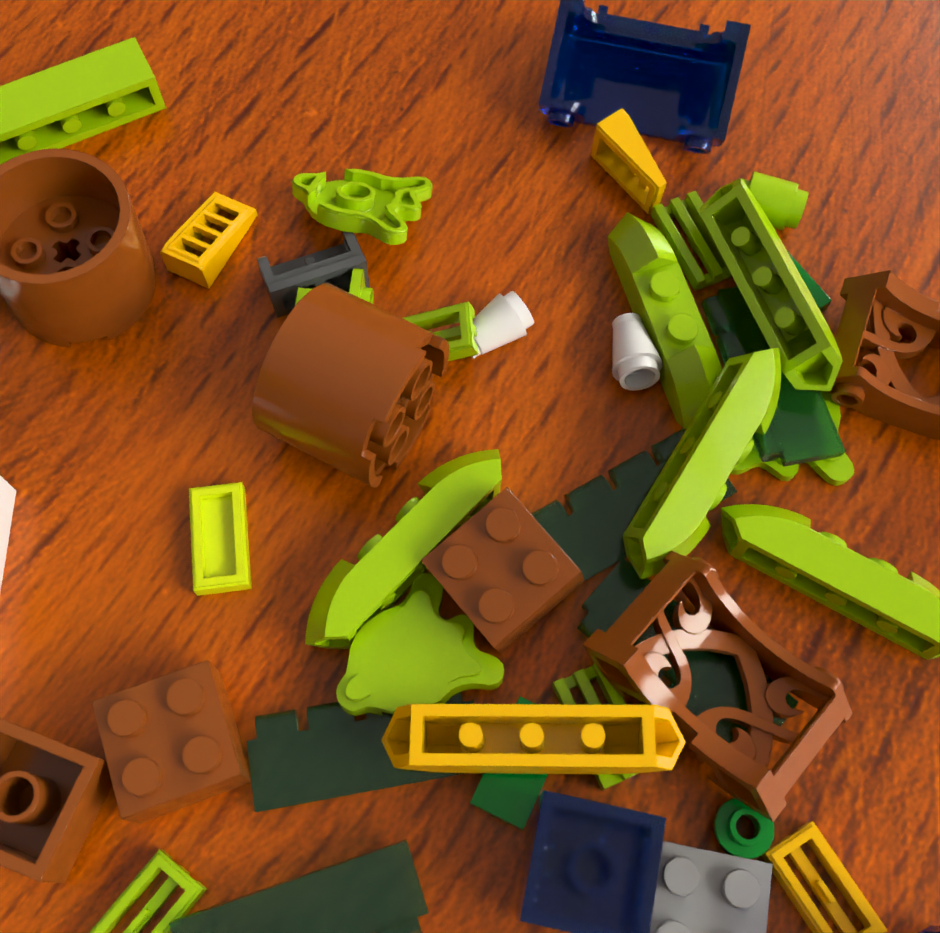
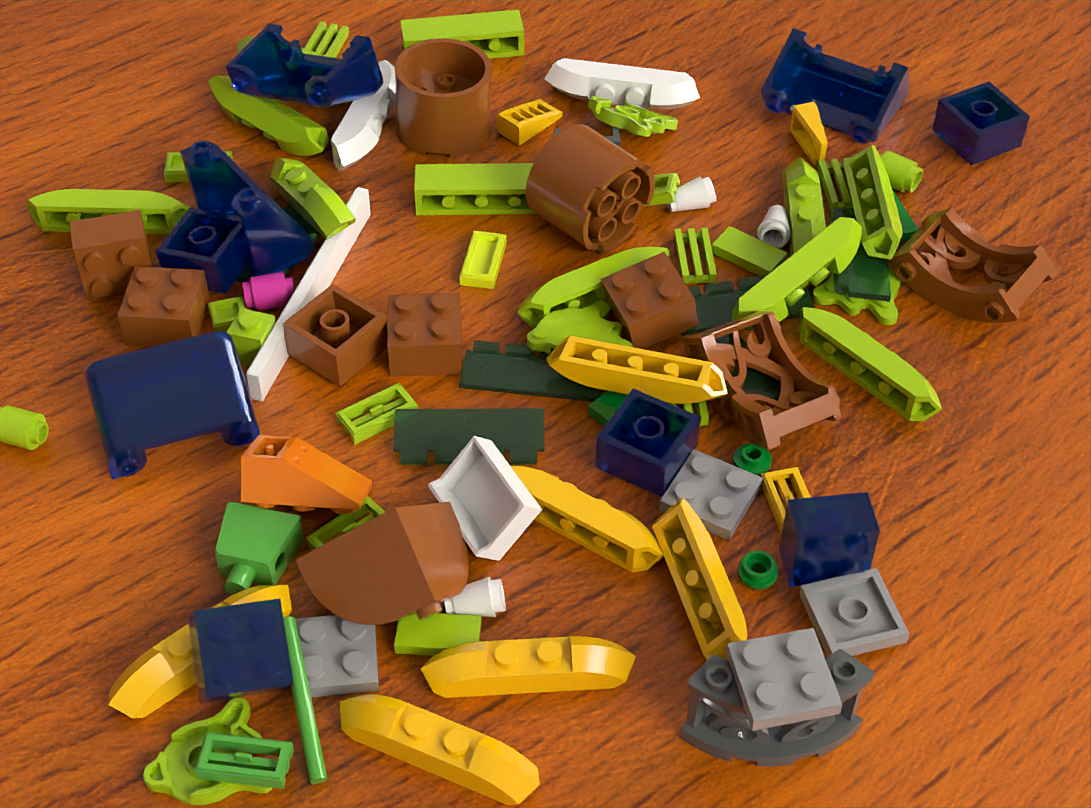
camera: 20 degrees right, 20 degrees down
(164, 405) = (471, 189): none -> lime brick
(330, 137) = (623, 84): none -> white brick
(518, 401) = (692, 238): none -> lime tile
(609, 409) = (748, 252): none -> lime tile
(857, 84) = (980, 123): none -> clear blue brick

